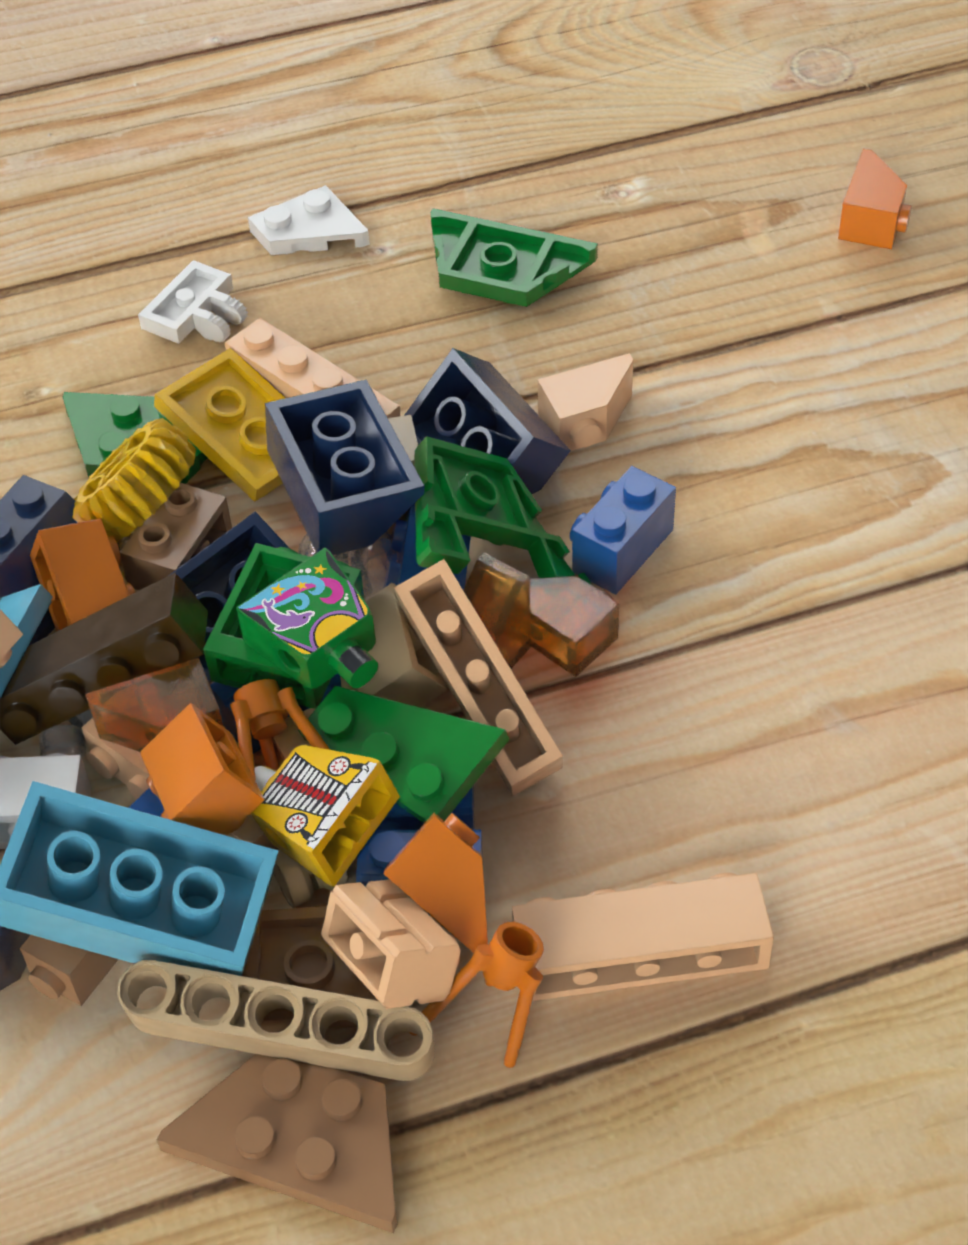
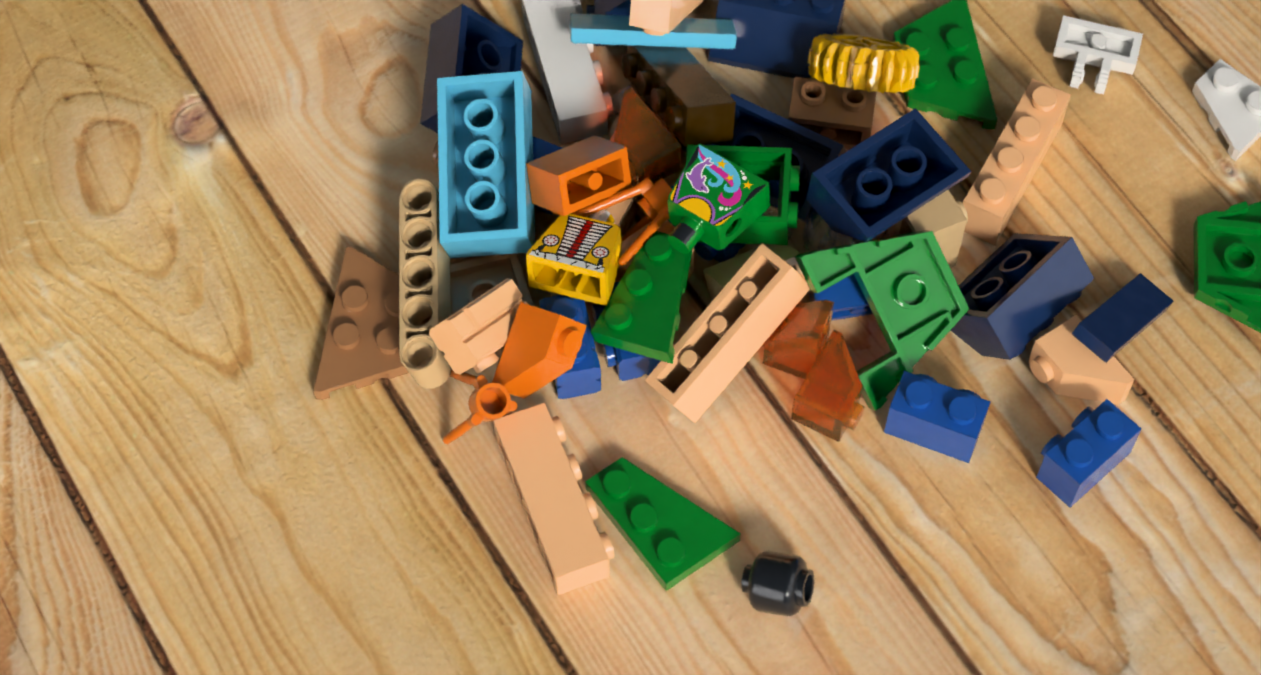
camera: 75 degrees right, 10 degrees up
(79, 570) = (761, 63): orange brick -> none
(226, 419) = (971, 108): yellow plate -> none
(549, 349) = (1122, 317): none -> dark blue tile
(693, 831) = (658, 523): none -> green wing
(699, 417) = (1087, 452): none -> blue brick
(806, 717) = (778, 583): none -> black head

